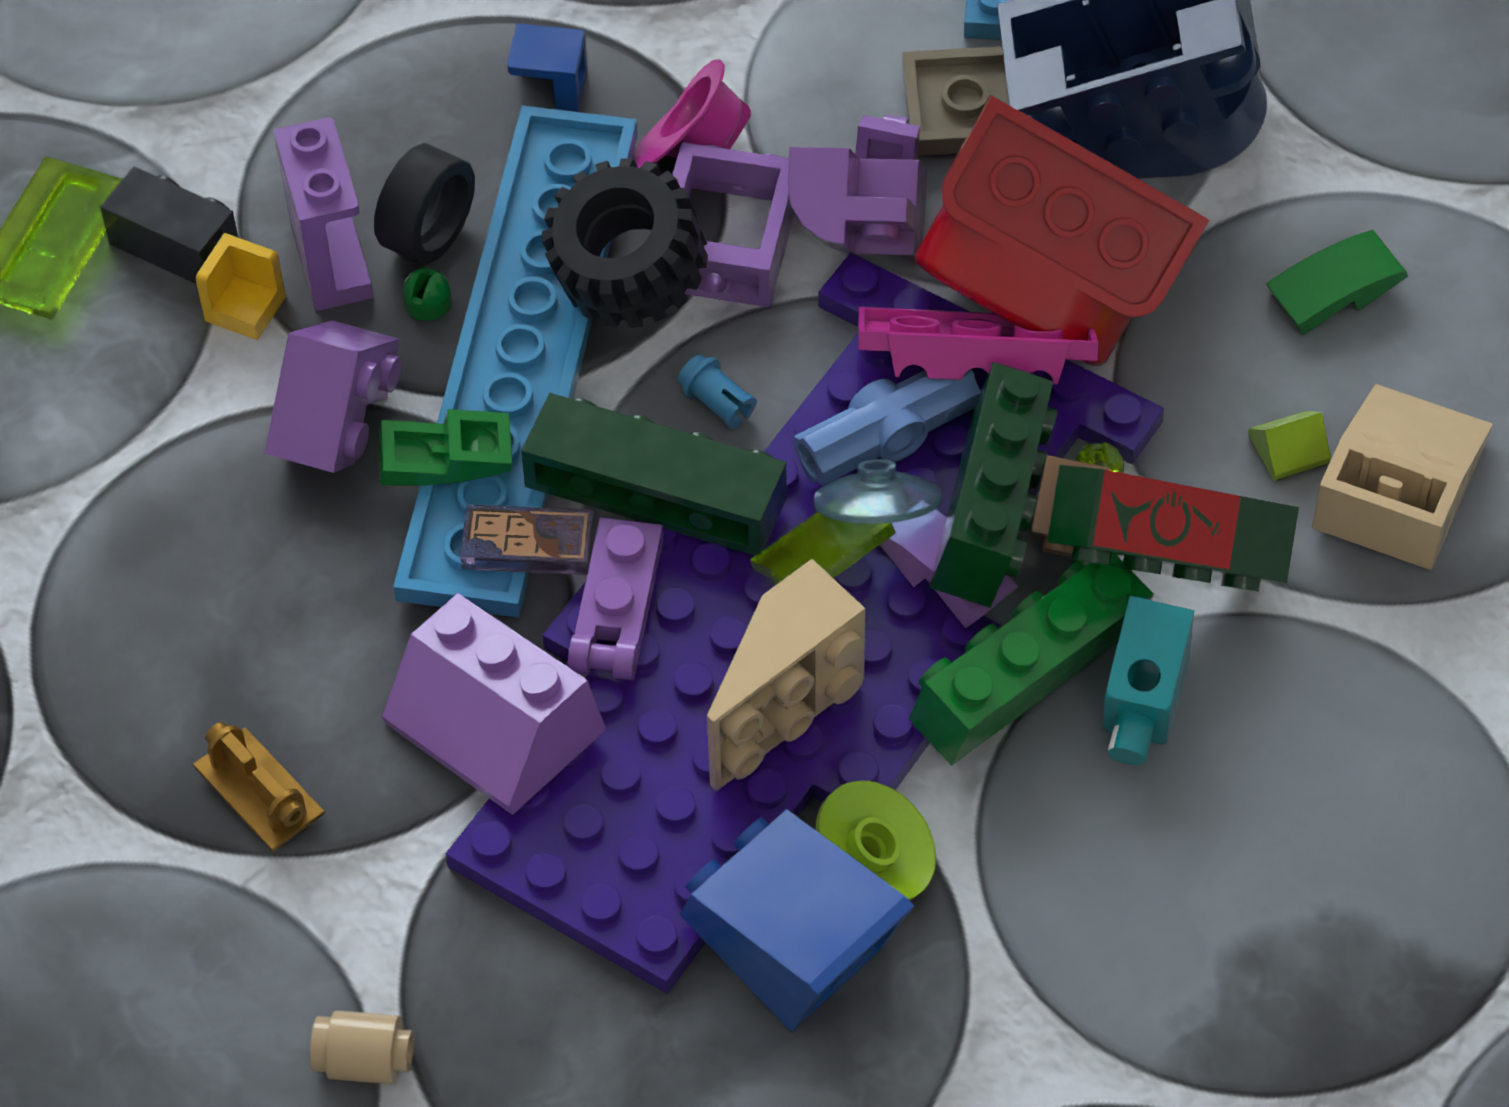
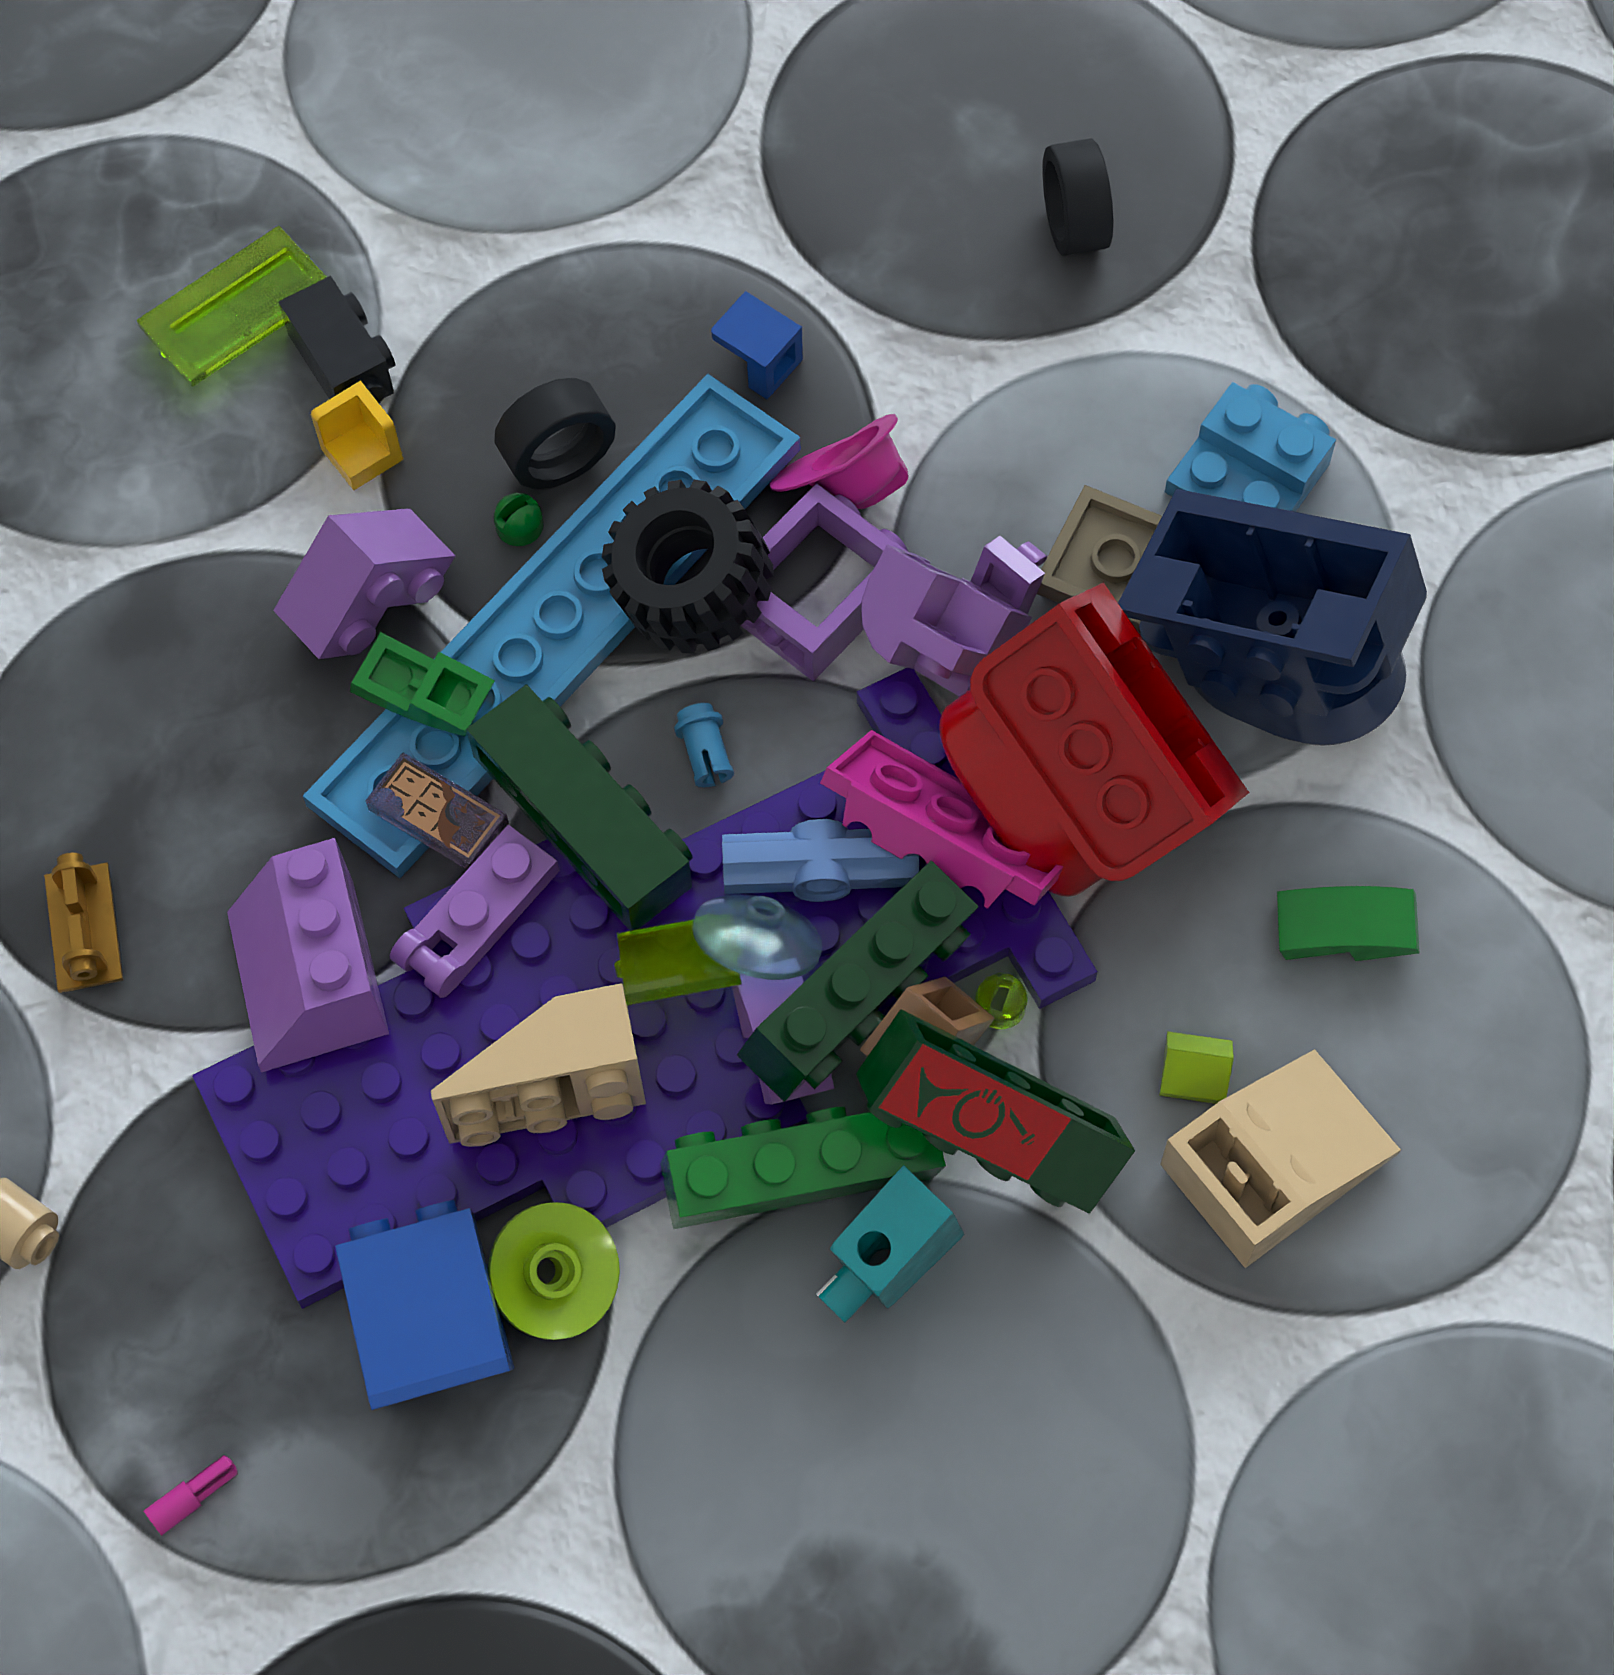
camera: 30 degrees right, 10 degrees up
(321, 212) = (447, 410): medium lavender panel -> none

